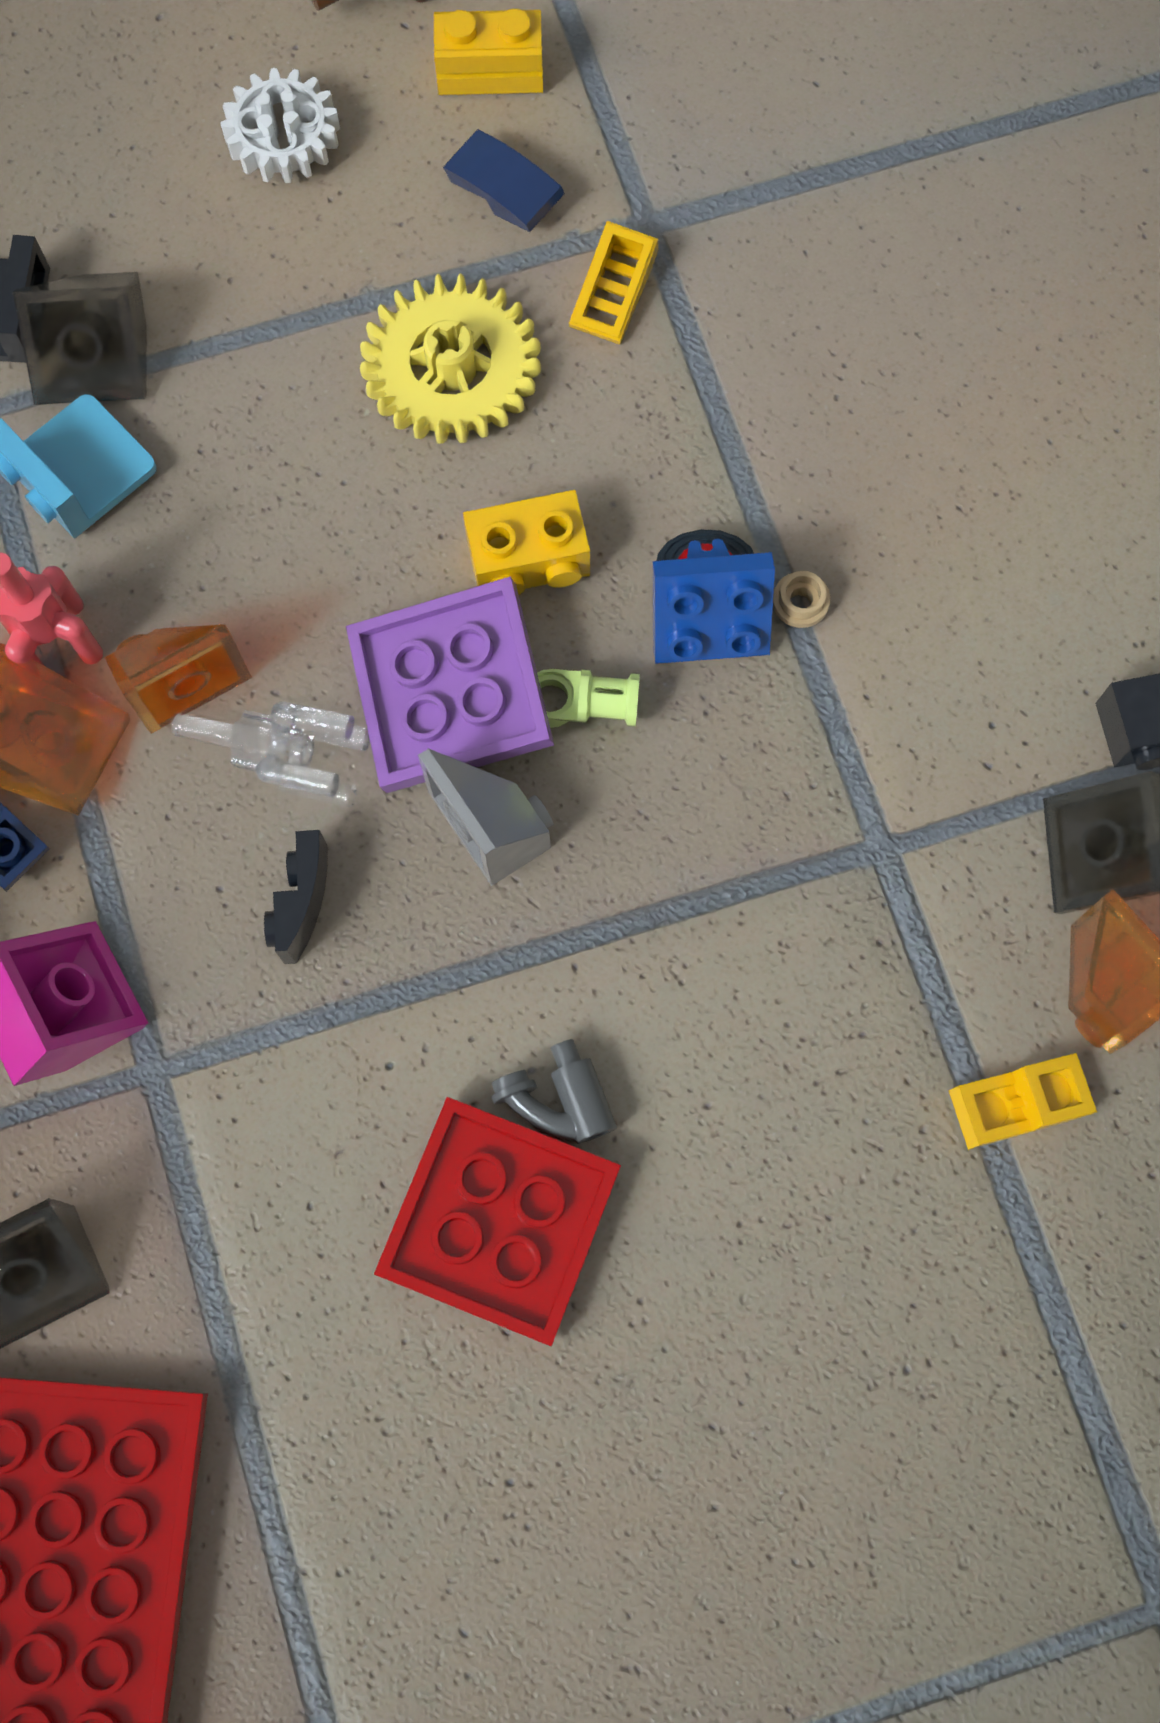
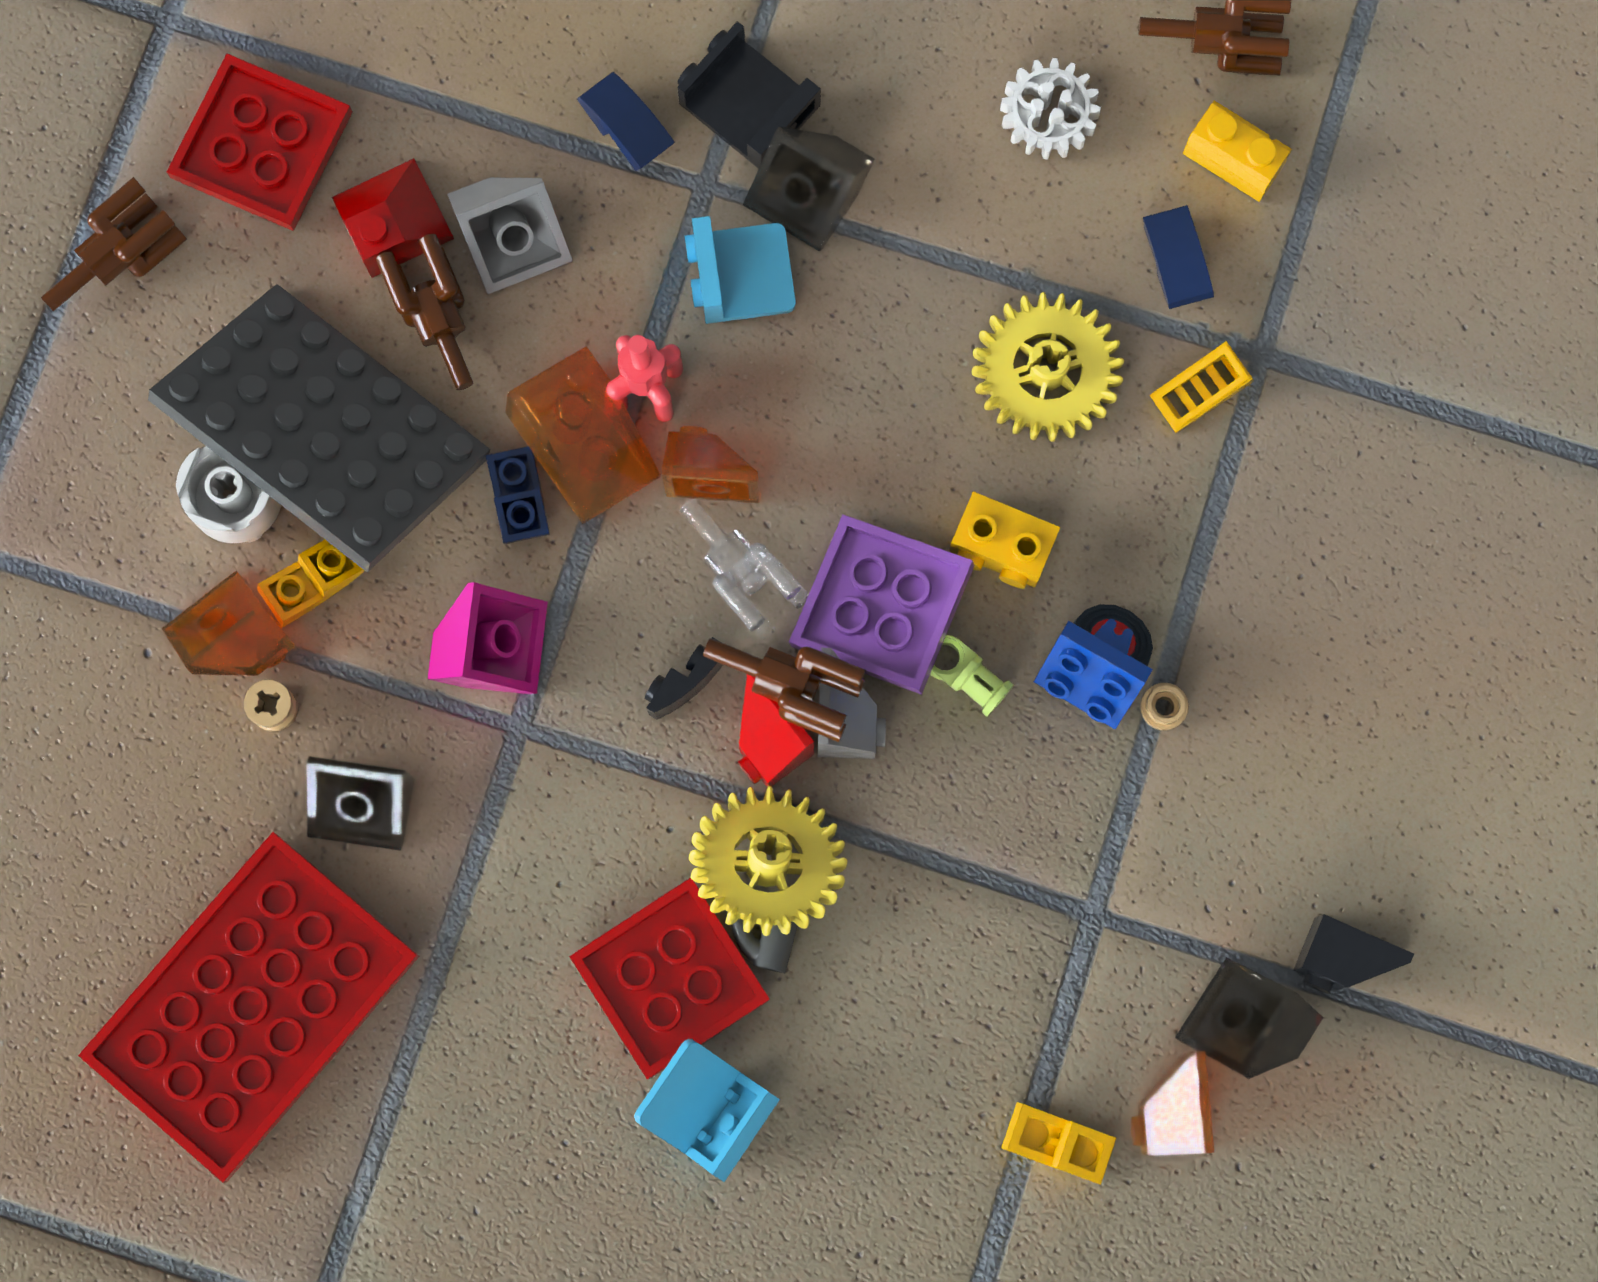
camera: 35 degrees right, 5 degrees up
(416, 801) = (795, 683): none -> reddish brown plant
(427, 884) = (768, 742): none -> slope
(504, 992) = (771, 830): none -> light yellow gear
(638, 1332) = (705, 1108): none -> medium azure bracket

